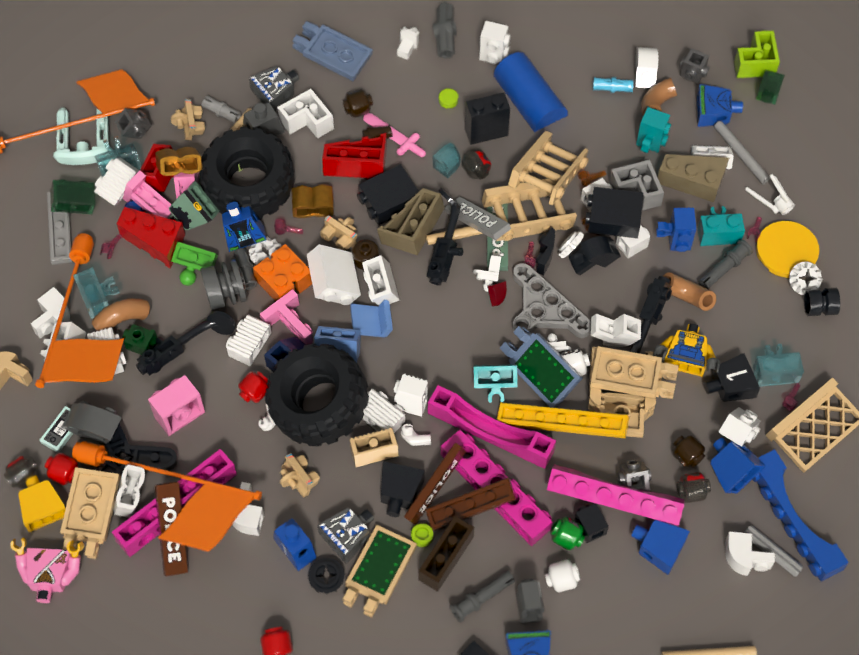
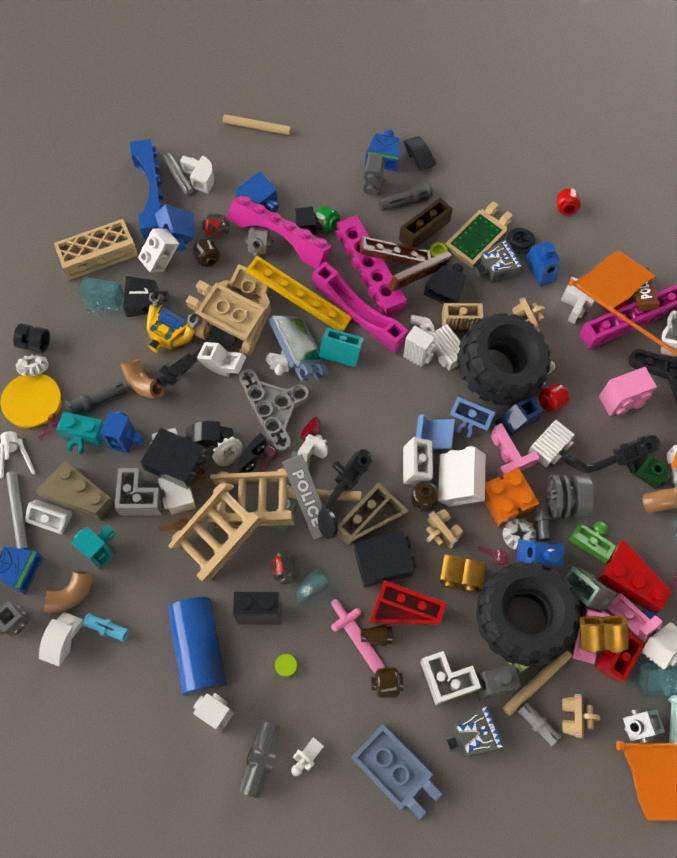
camera: 165 degrees left, 5 degrees up
(563, 576) = (341, 192): white head -> none
(577, 360) = (267, 344): white head -> none
(789, 402) = (105, 270): clear pink hand -> none

